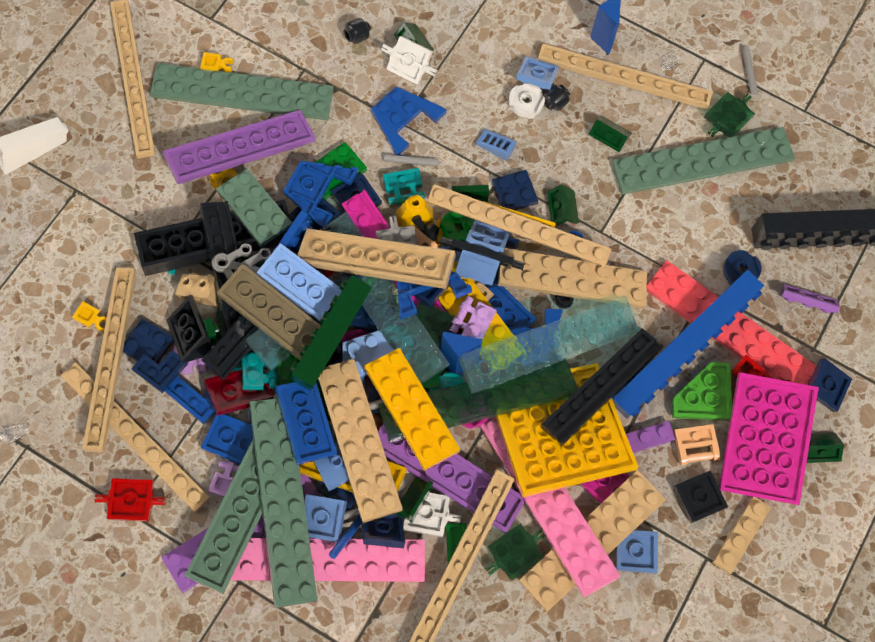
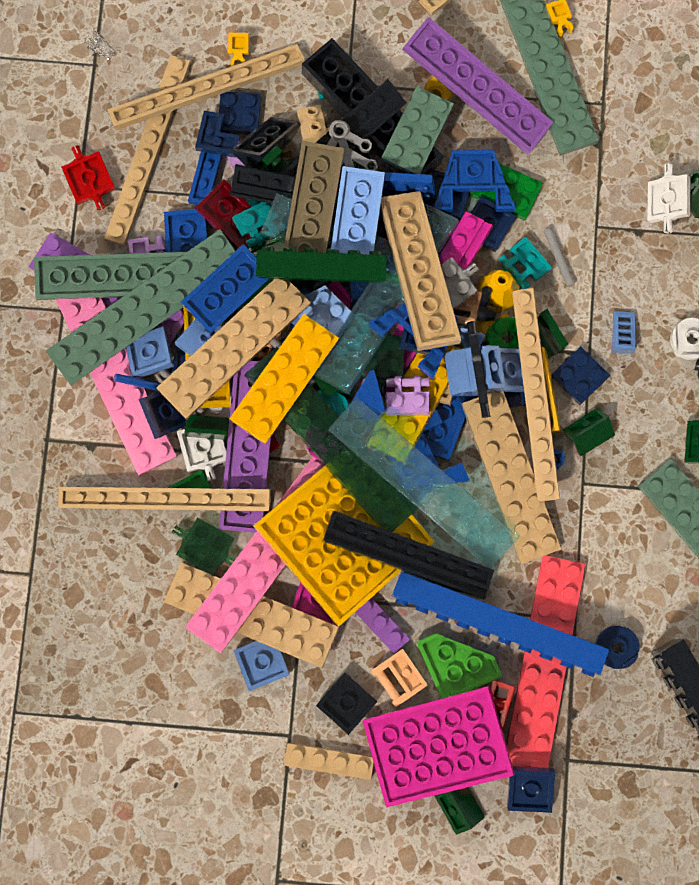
camera: 70 degrees right, 10 degrees up
(357, 30) = (674, 131): black head -> none
(398, 110) = (607, 217): blue wing -> none
(563, 302) = (483, 480): black plate -> none
(810, 298) = (620, 733): medium lavender plate -> none

